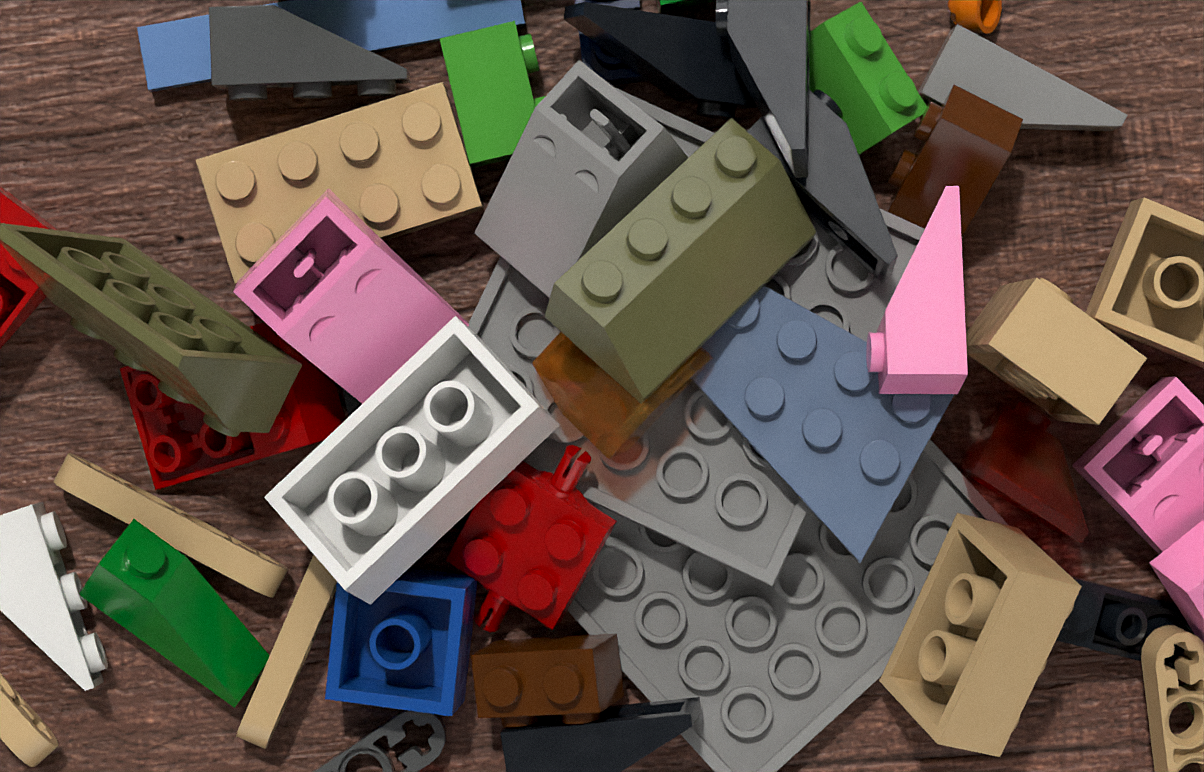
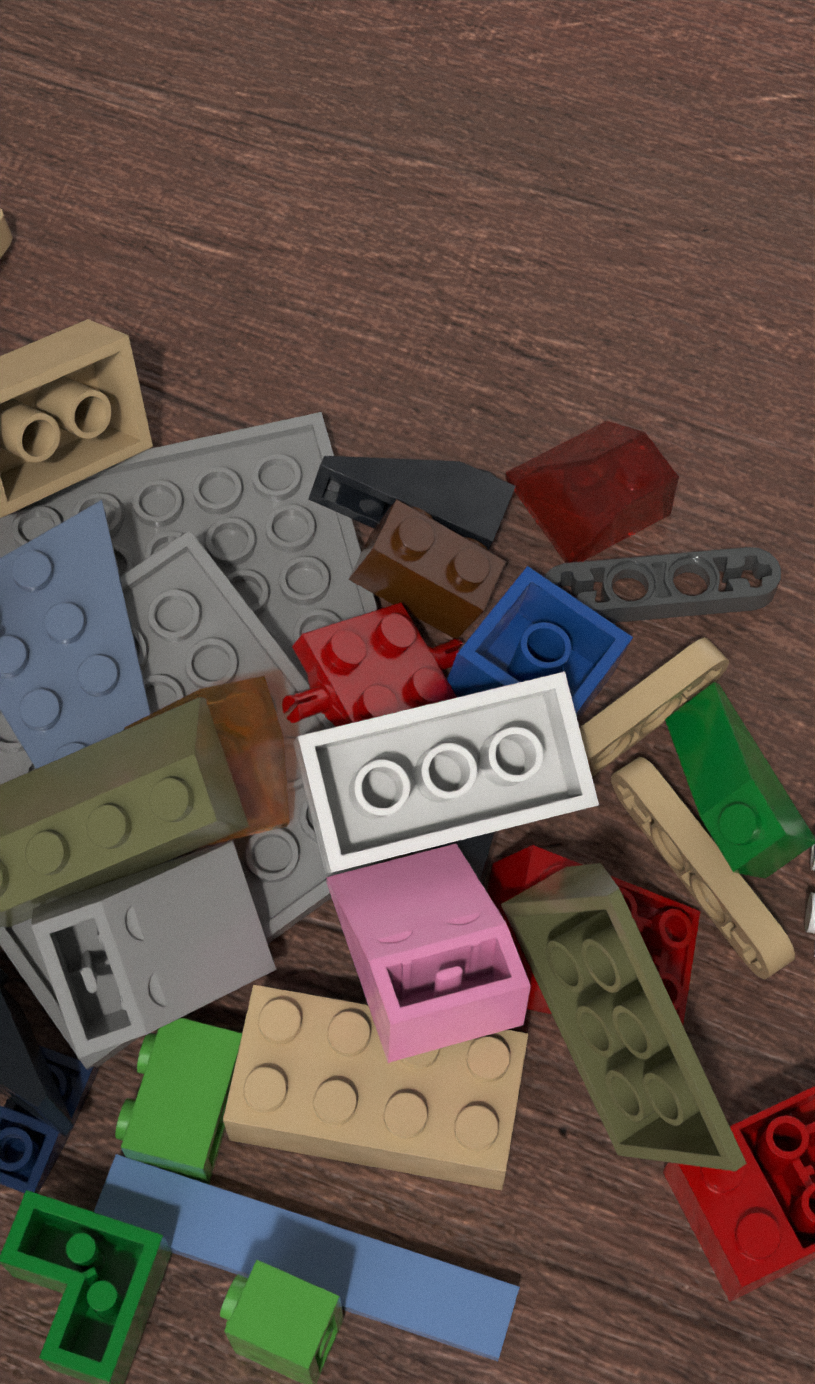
camera: 150 degrees left, 25 degrees down
(276, 49) = (369, 1246): dark grey slope -> none

